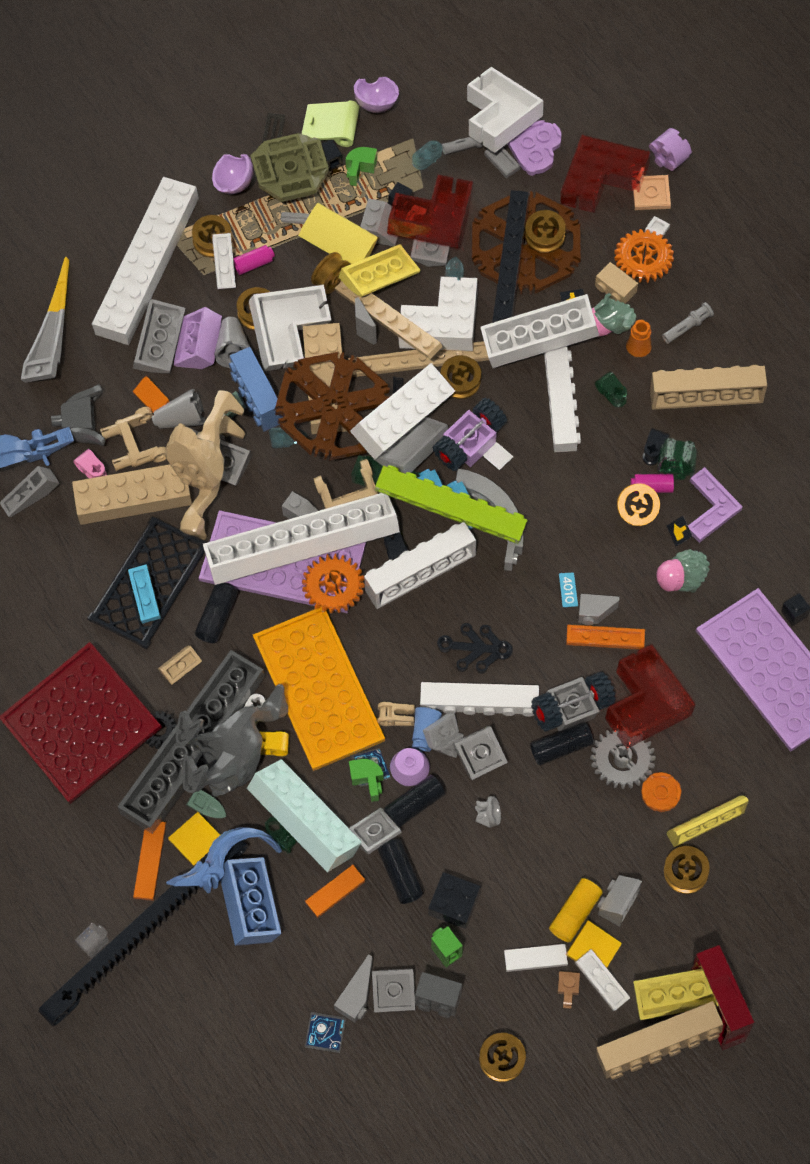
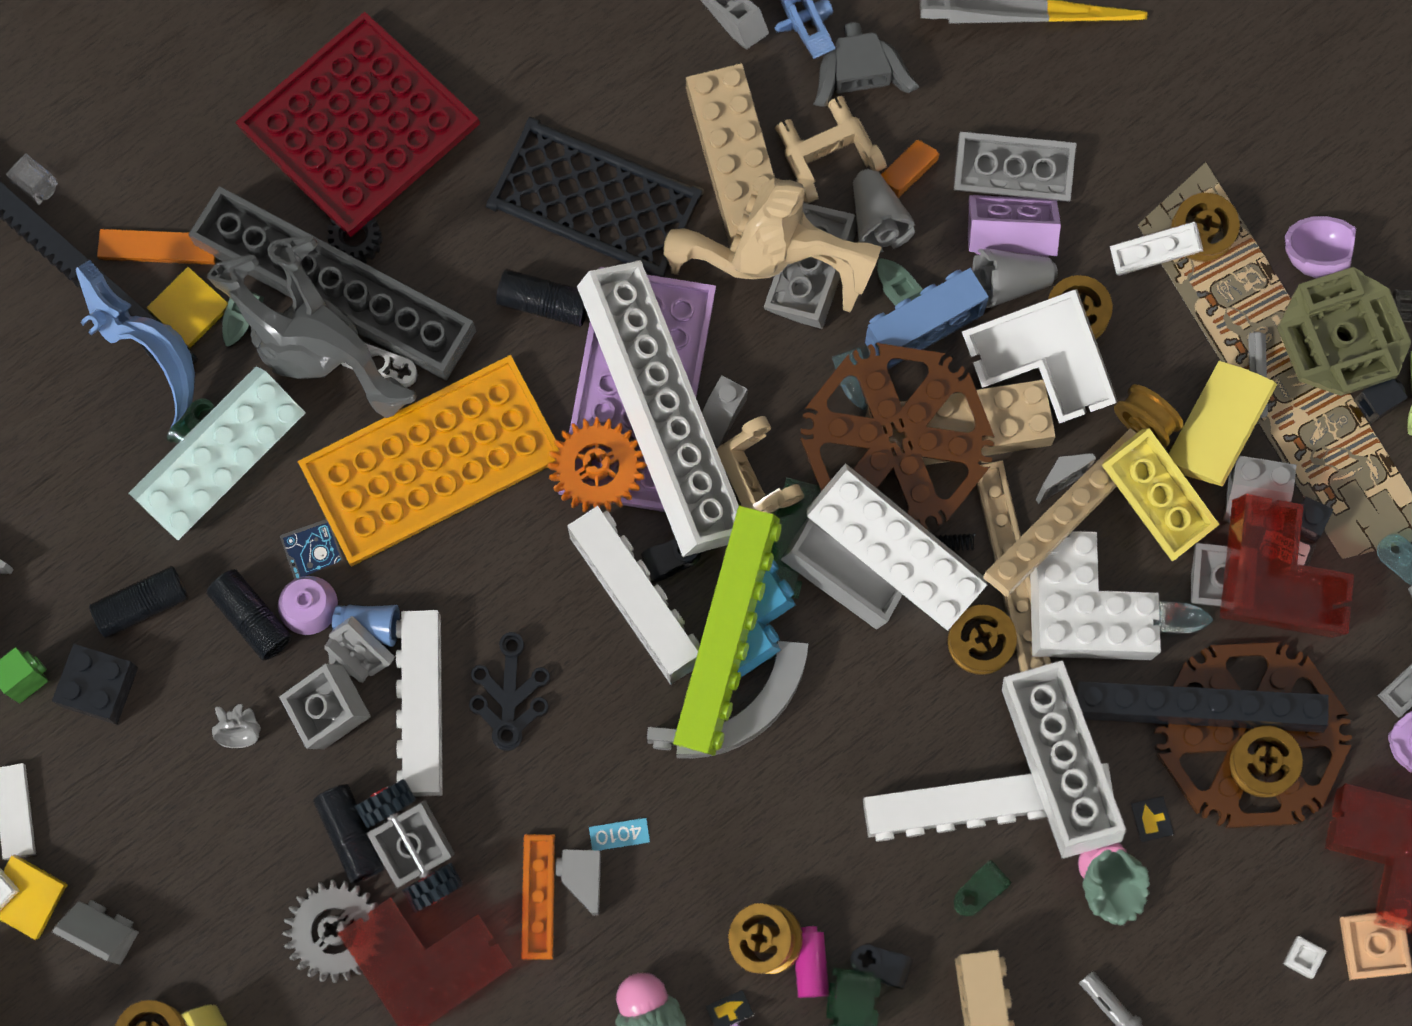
camera: 85 degrees right, 10 degrees up
(90, 465) = (781, 89): bright pink piece -> none
(144, 594) = (567, 190): medium azure plate -> none
(145, 261) = (1150, 131): white brick -> none
(180, 664) = (462, 256): tan slope -> none
(249, 901) = (83, 386): medium blue brick -> none
(253, 259) = (1169, 296): dark pink brick -> none
(275, 743) = (337, 401): yellow piece -> none
(335, 891) = (113, 511): orange tile -> none
(360, 159) = (1377, 448): bright green brick -> none
(369, 772) = (294, 544): bright green brick -> none
(375, 830) = (201, 558): light grey slope -> none
(392, 719) = (387, 566): tan piece -> none
(470, 435) = (867, 658): brick -> none
(498, 456) = (849, 709): white sticker -> none
(580, 905) = (89, 871): yellow piece -> none
(617, 283) = (1182, 888): tan brick -> none
(640, 339) = (1064, 937): orange plant -> none
(651, 267) = (1211, 933): orange gear -> none
(661, 792) = (281, 994): orange tile -> none

